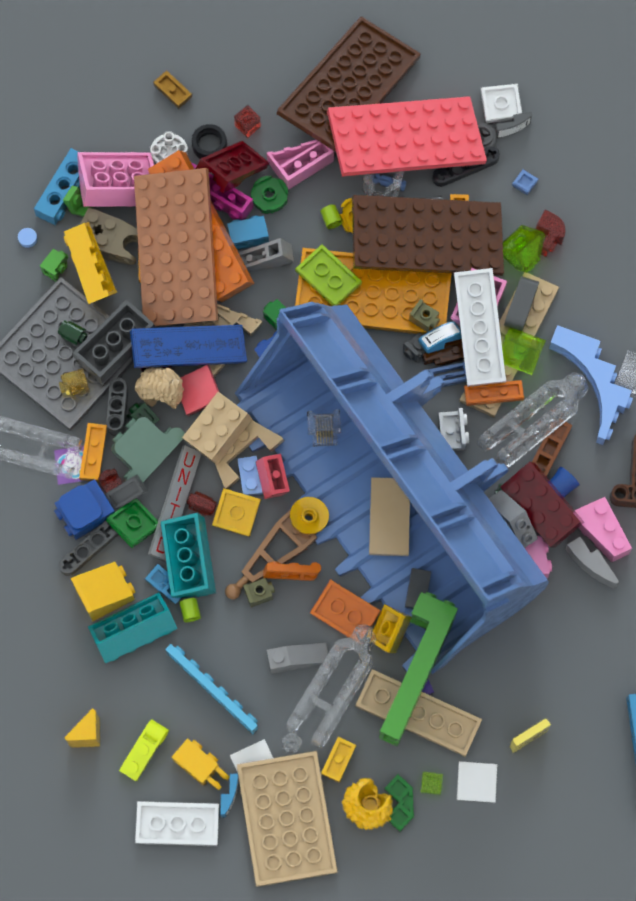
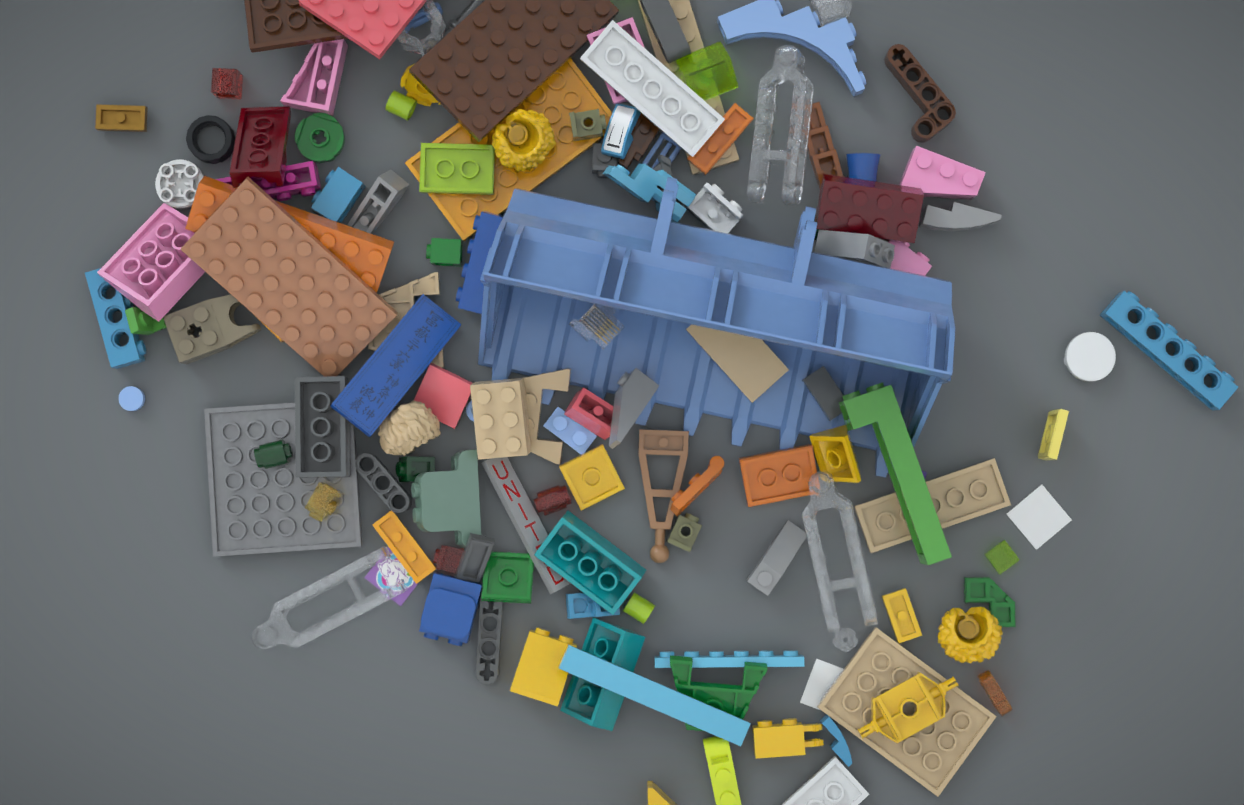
camera: 40 degrees left, 15 degrees up
(54, 264) = (185, 401): bright green brick -> none
(89, 263) = (222, 373): yellow wedge -> none
(149, 662) = (654, 695): none -> medium azure tile
(177, 705) = (726, 697): none -> green wing
(304, 484) = (629, 401): none -> light grey slope
(304, 822) = (888, 713): none -> yellow plate
(309, 507) = (665, 406): yellow dish -> none
(349, 857) = (994, 692): none -> clear orange beam
(379, 290) = (523, 140): none -> yellow hair
(440, 401) = (650, 183): none -> medium azure plate
(596, 714) = (1090, 356): none -> white tile

